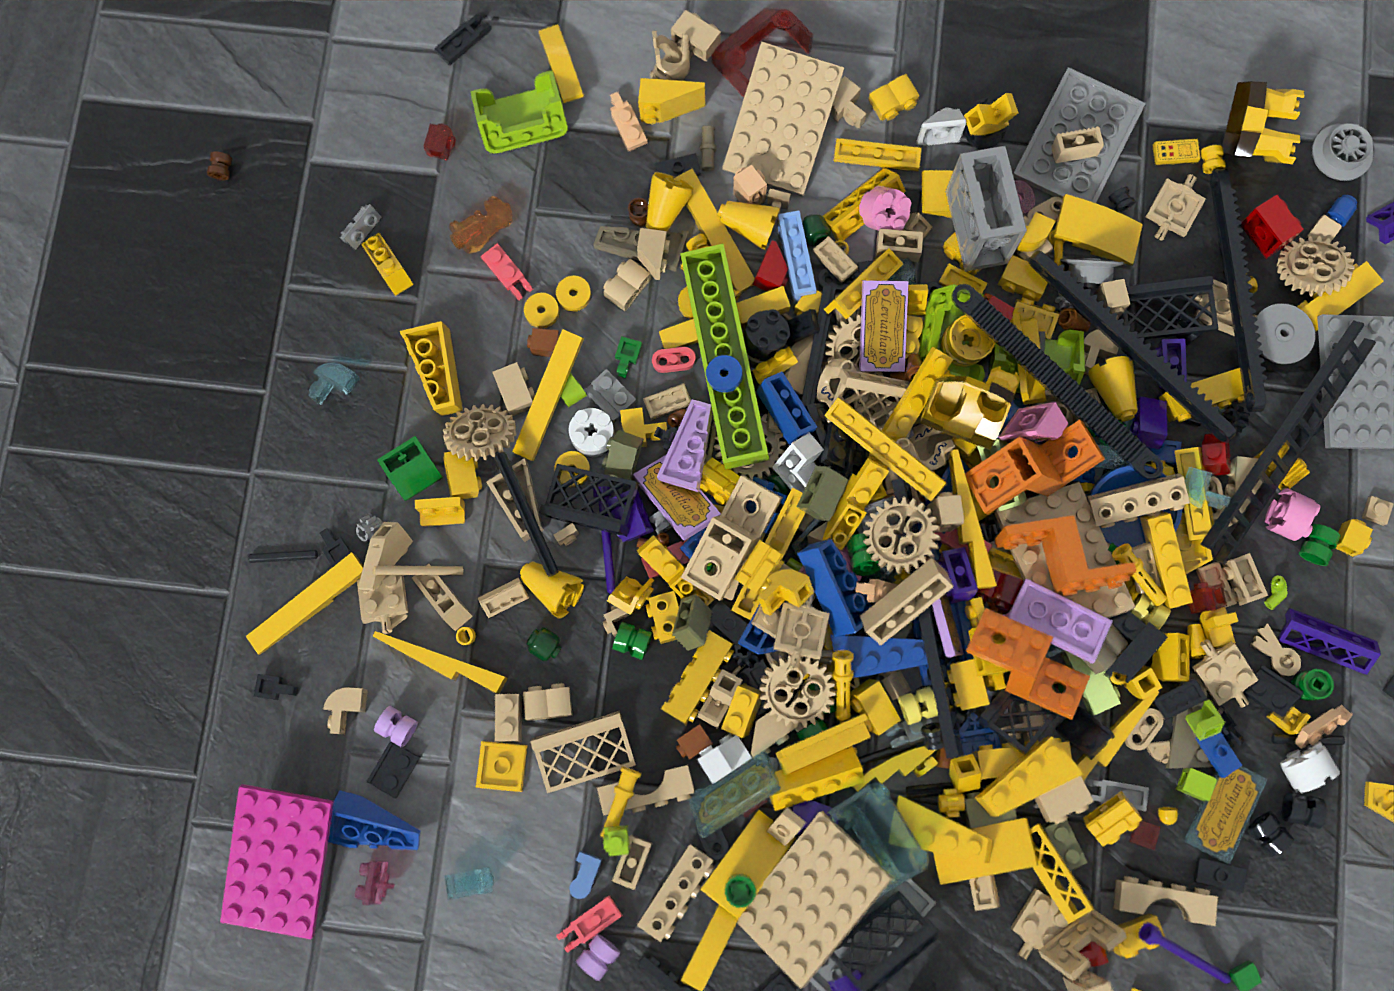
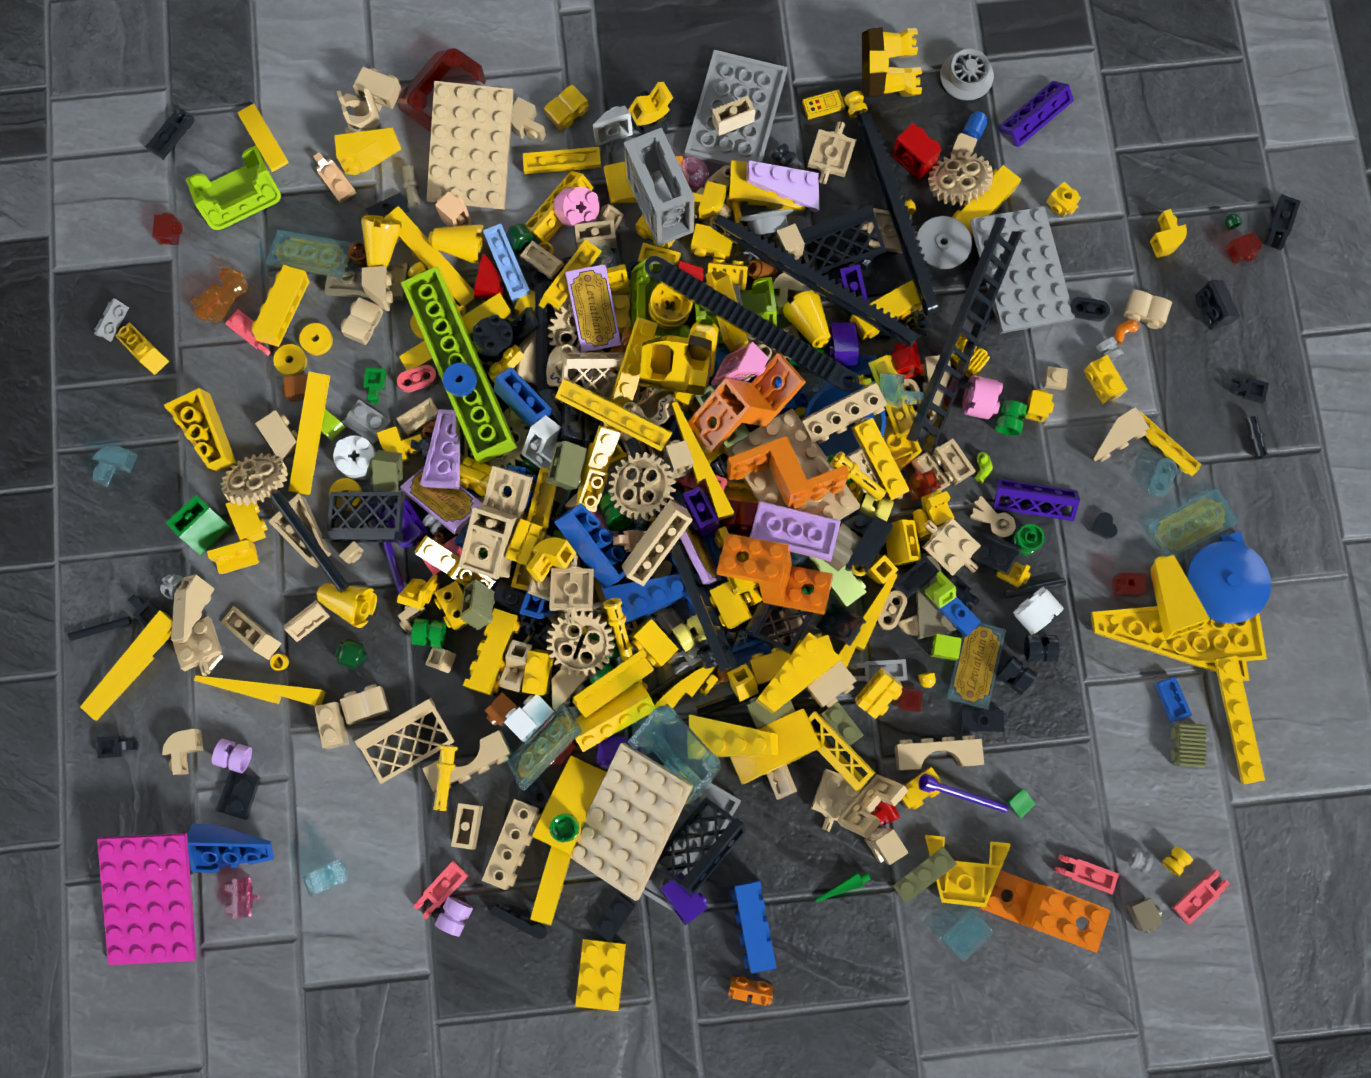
camera: 15 degrees left, 0 degrees up
(417, 570) = (222, 613): tan bar -> none
(501, 766) = (335, 769): yellow tile -> none
(544, 249) = (280, 305): none -> yellow brick
(585, 200) = (309, 253): none -> clear light blue tile
(586, 876) = (429, 847): medium blue leg -> none
(616, 840) = (446, 809): lime brick -> none
(638, 671) = (441, 659): none -> tan slope
(778, 199) = (482, 217): tan tile -> none
(786, 826) = (595, 763): tan plate -> none
(951, 803) = (736, 711): yellow gear -> none
(1120, 231) = (786, 182): none -> lavender wing
(1324, 724) = (1042, 572): light nougat hinge -> none

